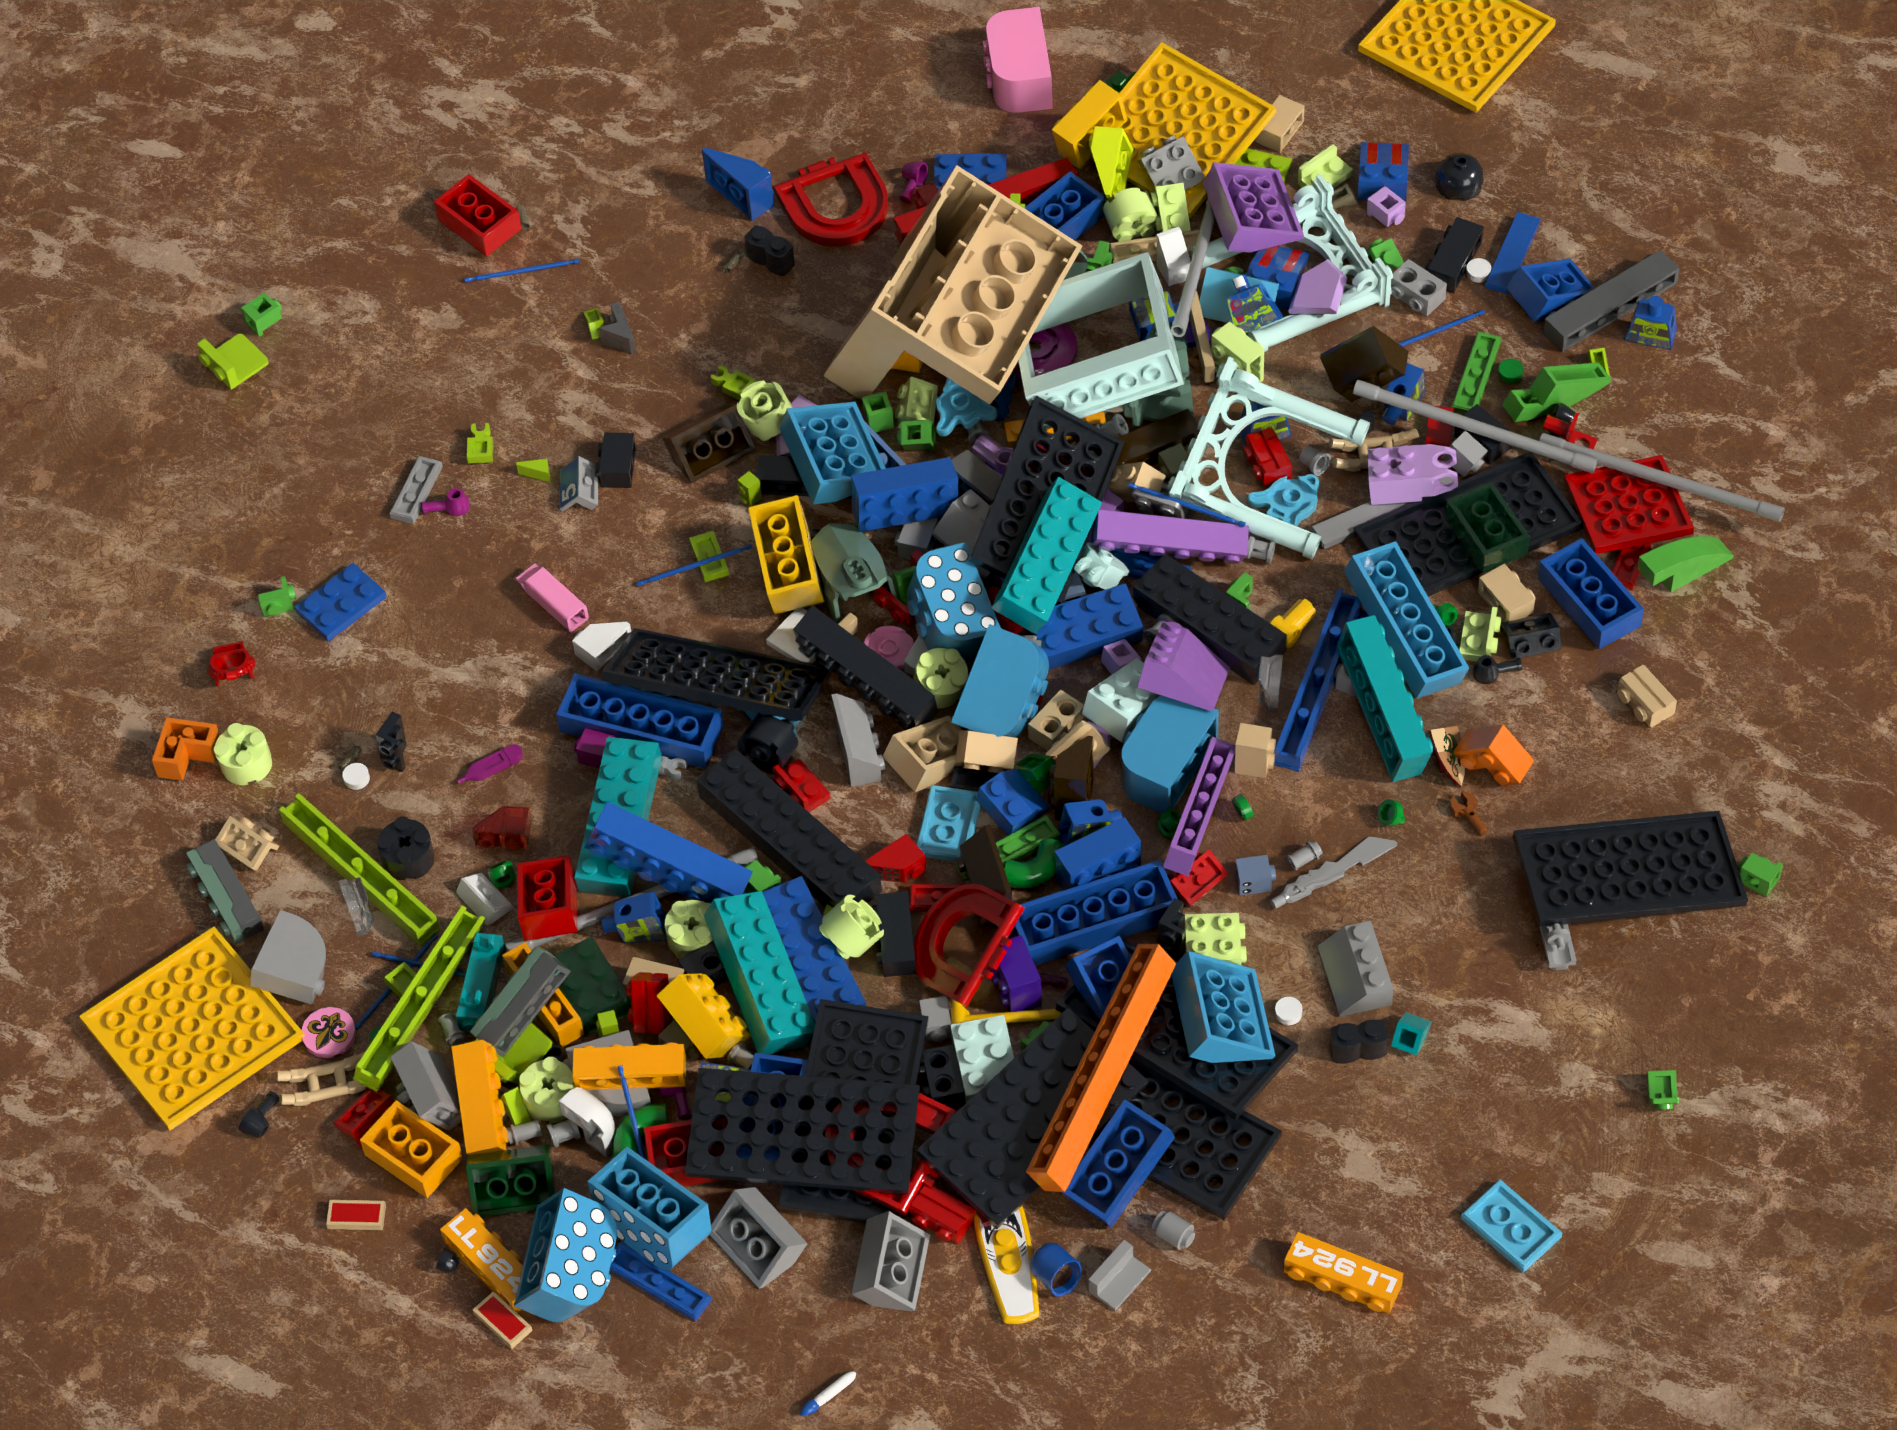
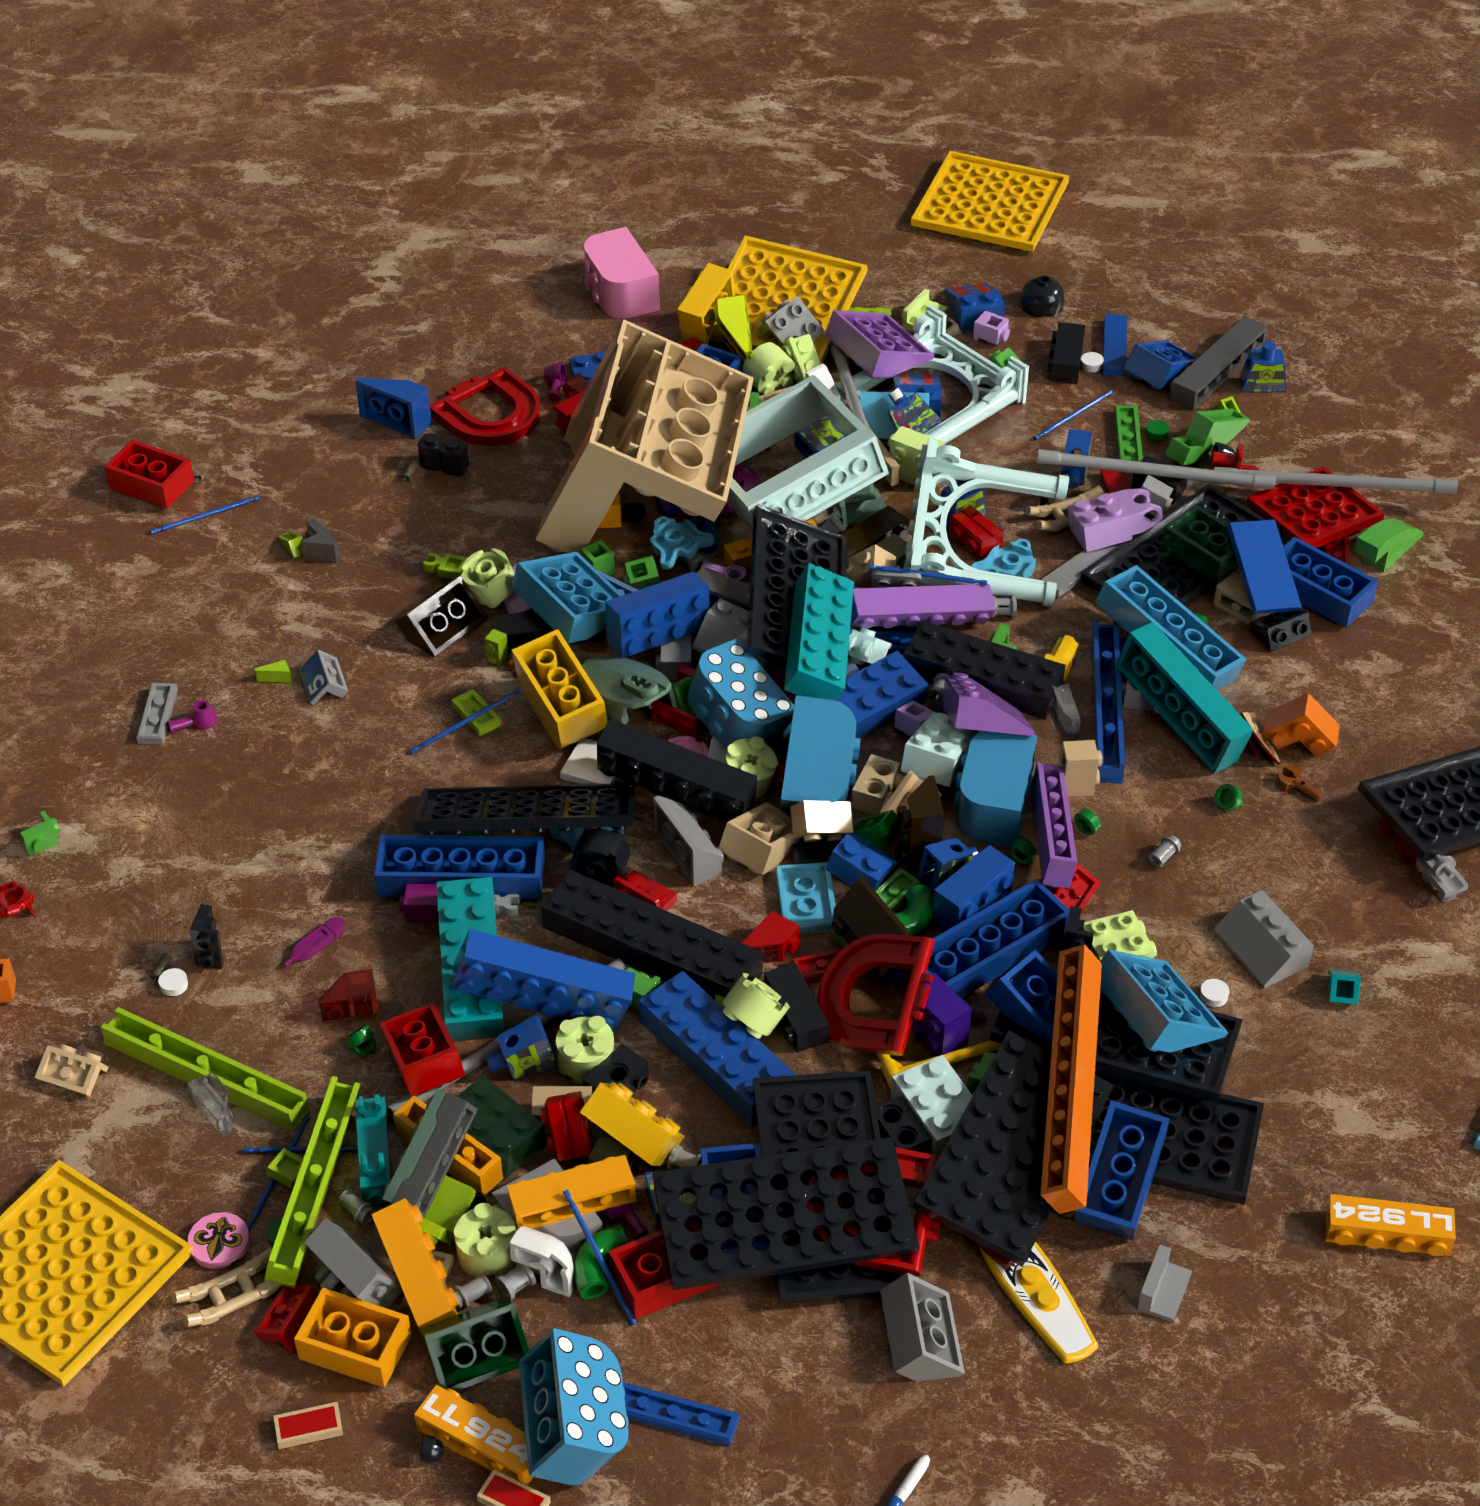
camera: 20 degrees left, 10 degrees down
(225, 892) = (60, 1123): piece -> none
(243, 754) = (44, 985): yellowish green brick -> none
(254, 1122) = (162, 1352): black bar -> none
(291, 960) = (158, 1173): light grey brick -> none
(340, 602) = (108, 826): blue plate -> none
(406, 849) = (251, 1036): black brick -> none
(480, 445) = (212, 662): lime plate -> none
(483, 898) = (348, 1068): white slope -> none
(515, 1107) = (455, 1266): lime piece -> none
(553, 597) = (331, 777): bright pink piece -> none
(600, 642) = (393, 807): white slope -> none
(607, 1024) = (528, 1159): lime piece -> none
(617, 460) = (355, 649): black brick -> none
(650, 1209) = (653, 1333): dark azure brick -> none
(756, 1236) = (766, 1338): light grey slope -> none
(760, 973) = (676, 1070): teal brick -> none
(916, 401) = (627, 546): yellowish green bracket -> none
(939, 1018) = (880, 1076): light grey brick -> none
(942, 1214) = (955, 1266): red brick -> none
(1048, 1261) = (1091, 1287): blue helmet -> none
(1173, 1229) = (1200, 1224): light grey brick -> none
(1254, 875) = (1125, 877): sand blue brick -> none
(1282, 125) = (872, 286): tan brick -> none
(1315, 460) = (1019, 527): light grey piece -> none
(1319, 290) = (964, 395): lavender tile -> none
(1331, 871) = (1193, 862): light grey sword -> none
(1363, 1041) = (1298, 1003): black brick -> none
(1364, 357) = (1037, 428): dark brown slope -> none
(1418, 288) = (1049, 382): light grey brick -> none
(1478, 634) = (1238, 633): yellowish green bracket -> none
(1490, 673) = (1257, 661): black bar -> none
(1529, 569) = (1264, 567): none -> blue tile
(1646, 696) = (1411, 654): tan brick -> none

